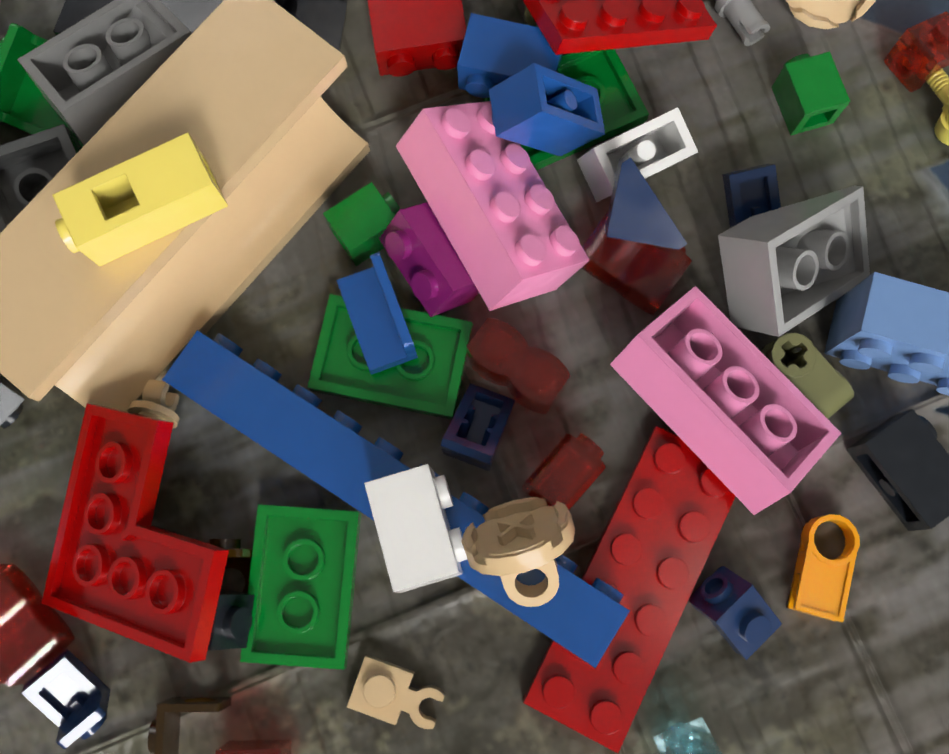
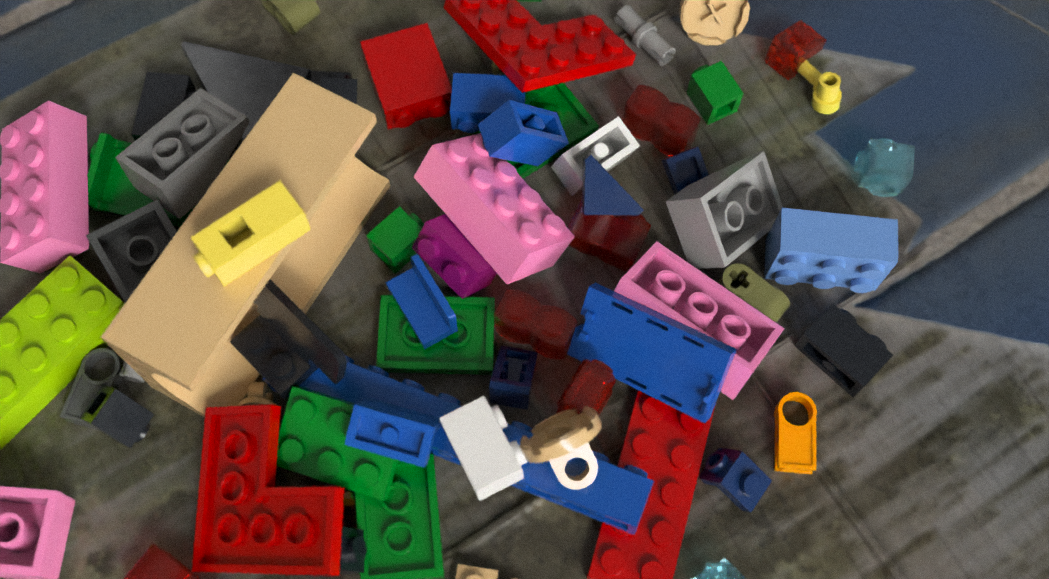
camera: 15 degrees left, 10 degrees down
(190, 345) = (287, 343): none -> black plate
(242, 480) = (314, 446): none -> green plate
(305, 484) = (392, 431): none -> blue panel
(661, 435) = (650, 355): none -> blue piece
(726, 118) = (656, 120): none -> clear red brick

